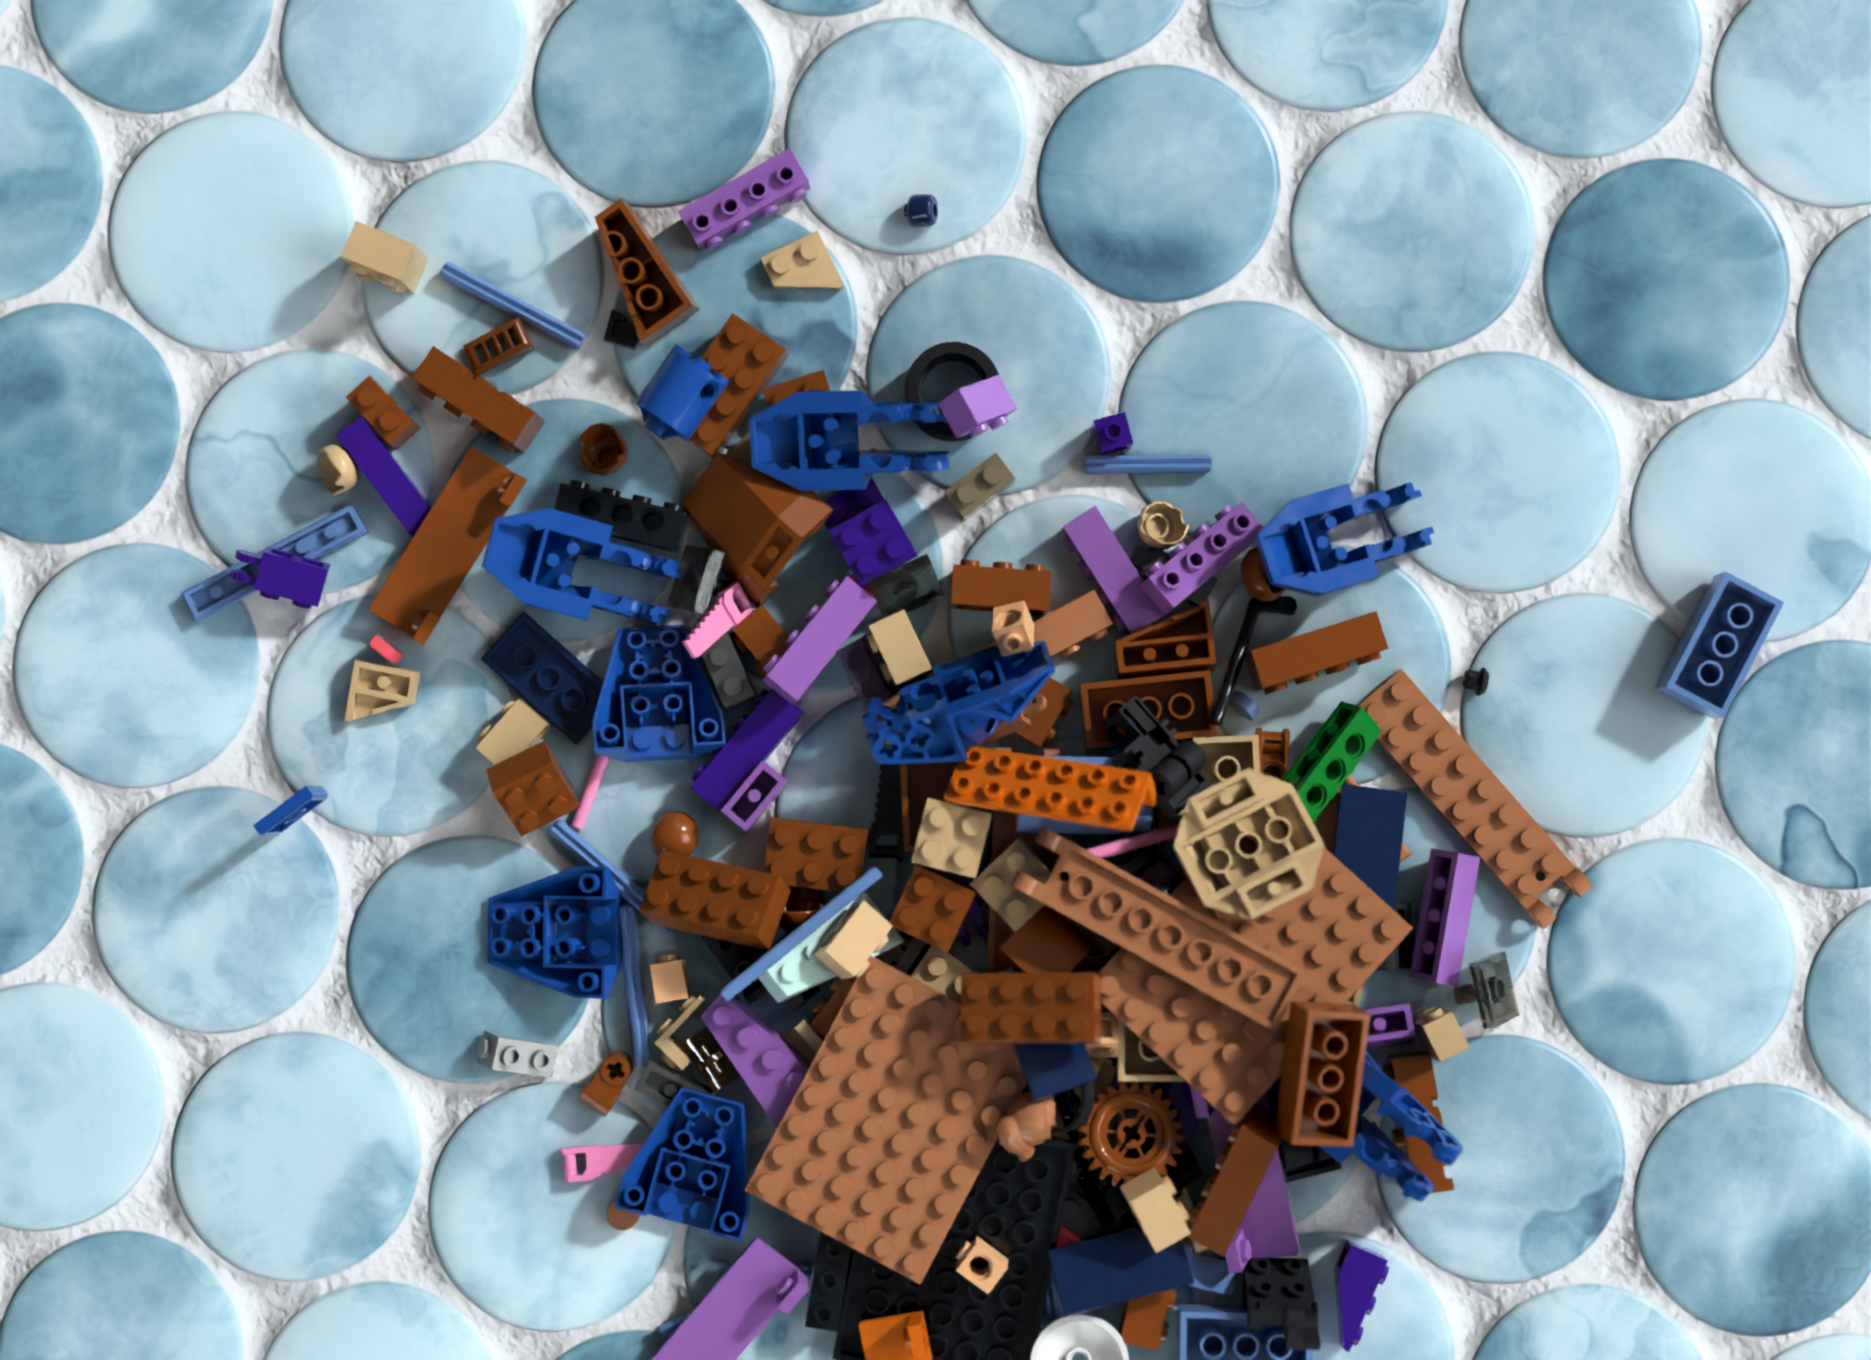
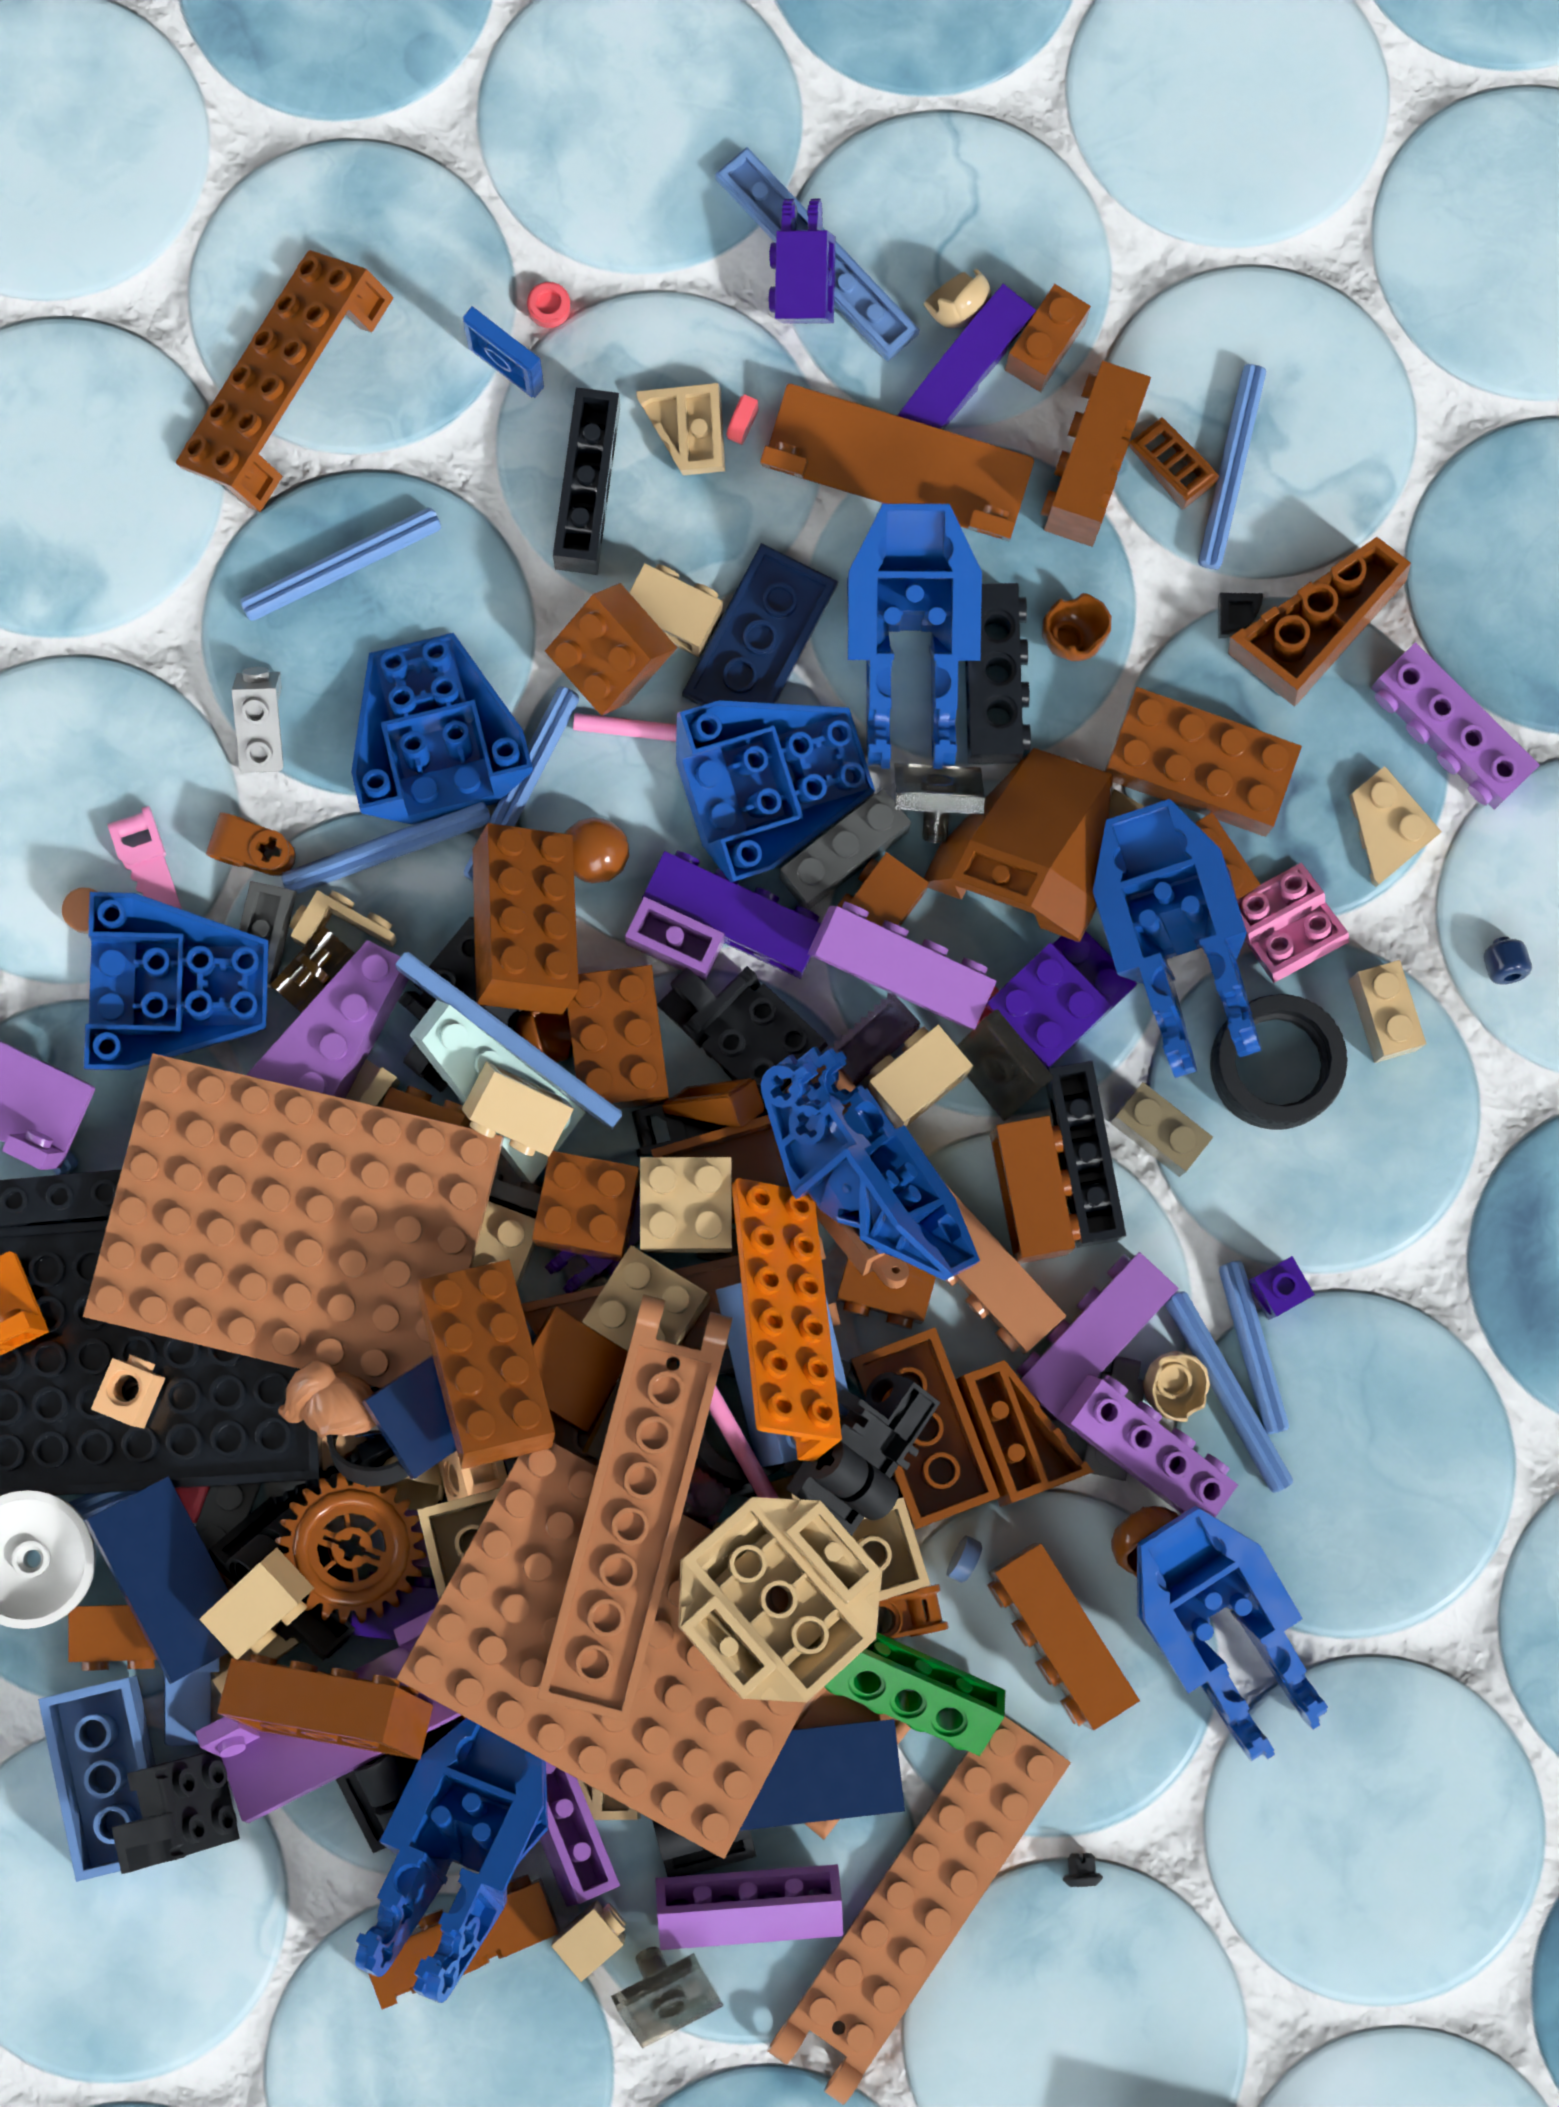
camera: 60 degrees right, 5 degrees down
(259, 980) = (274, 368): none -> dark orange bracket
(261, 767) = (548, 304): none -> coral tile
(384, 257) = (1246, 287): tan brick -> none
(402, 774) = (586, 481): none -> black brick
(416, 967) = (340, 564): none -> medium blue axle
(670, 978) = (406, 891): light nougat brick -> none
(679, 395) = (1175, 700): blue cylinder -> none
(719, 619) = (894, 830): bright pink piece -> none
(834, 761) = (742, 1026): none -> black plate
(855, 356) = (1290, 923): none -> bright pink slope
(881, 795) = (720, 1103): none -> dark orange slope
(936, 305) = (1387, 1011): none -> tan brick
(977, 407) = (1267, 1092): brick -> none
(983, 544) = (1086, 1153): none -> black brick
(1013, 628) = (985, 1215): light nougat brick -> none
(1174, 489) = (1229, 1392): none -> medium blue axle
(1283, 605) = (1113, 1576): black piece -> none
(1322, 1074) = (495, 1778): dark orange brick -> none
(1356, 1280) = (226, 1912): dark purple slope -> none

